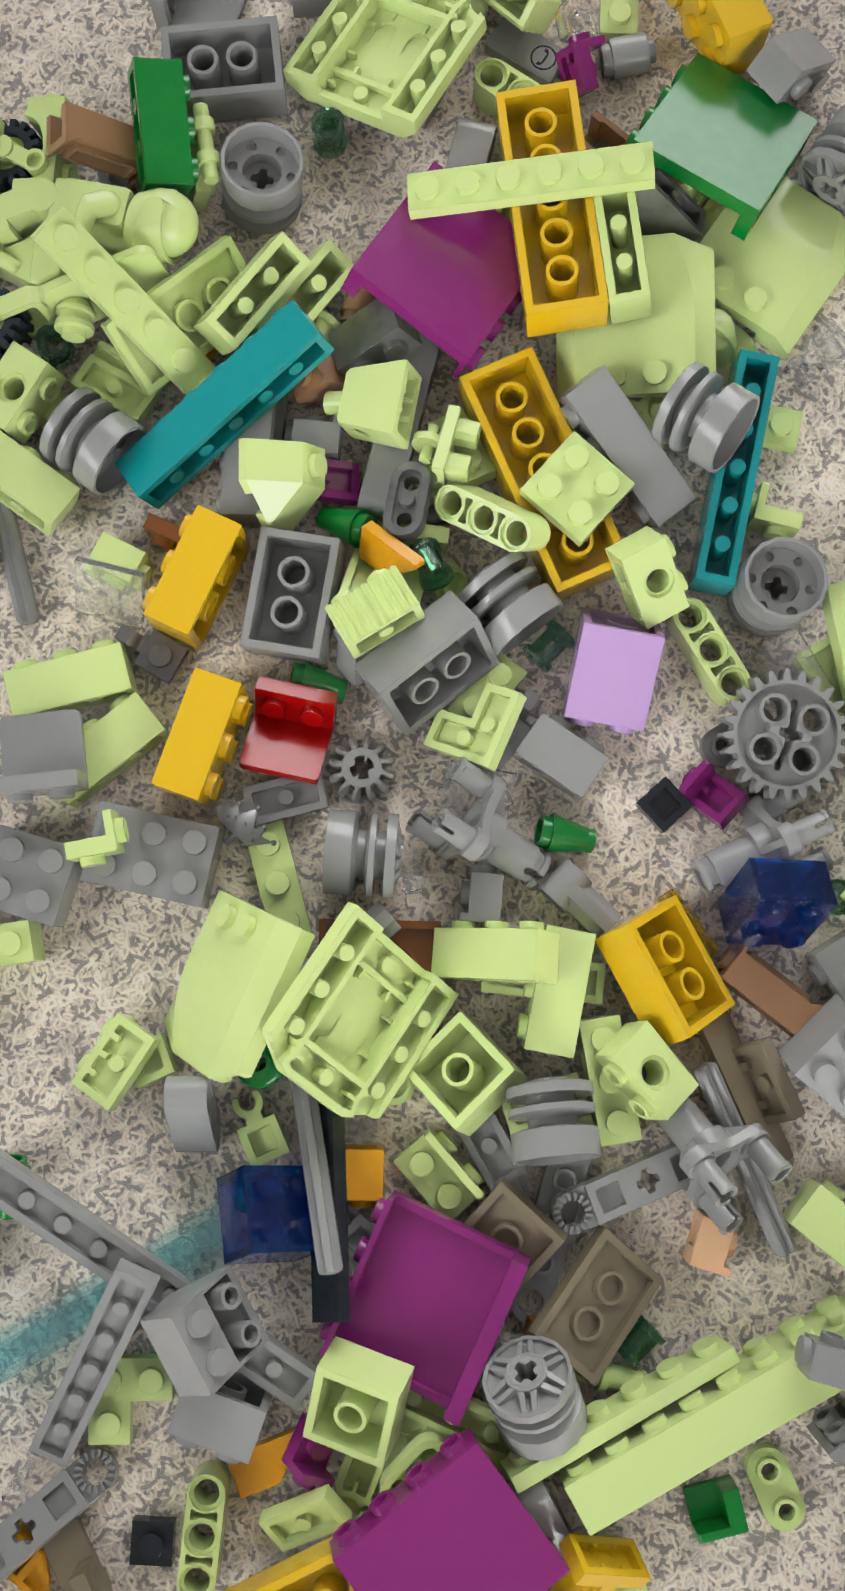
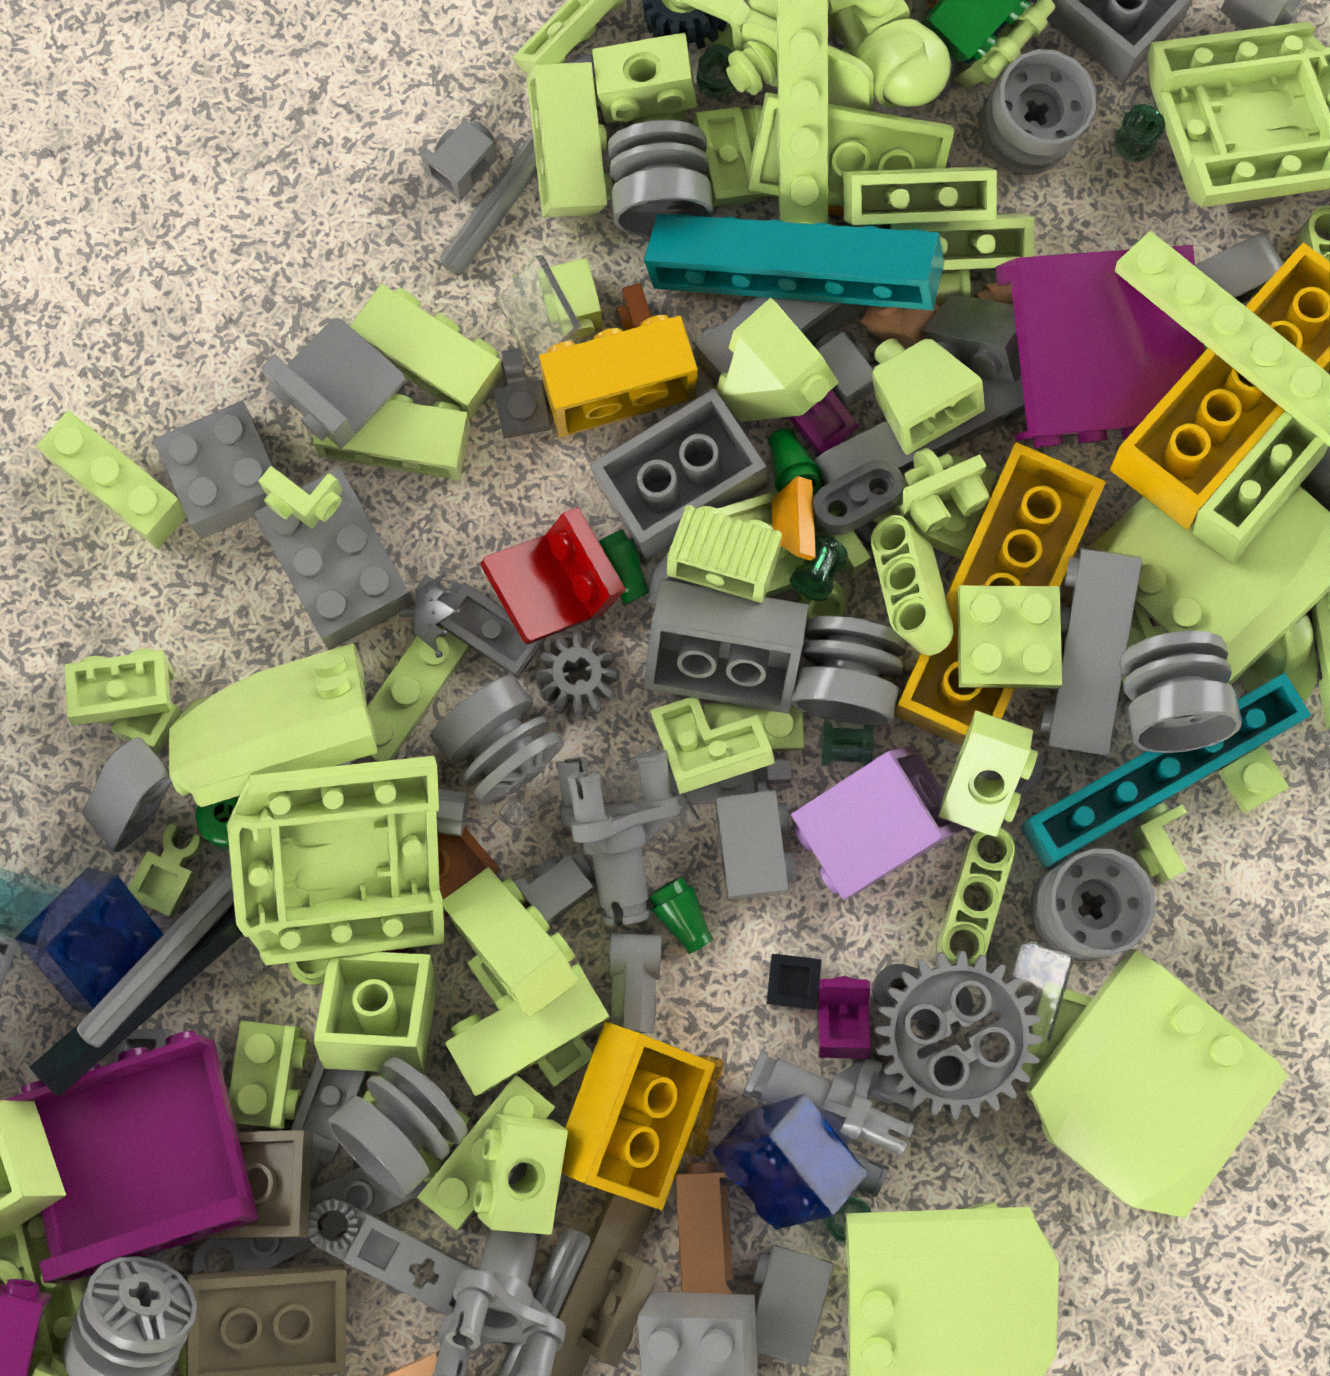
camera: 50 degrees right, 5 degrees down
(203, 738) = (477, 508): yellow brick -> none
(364, 1174) = (206, 1002): light orange brick -> none

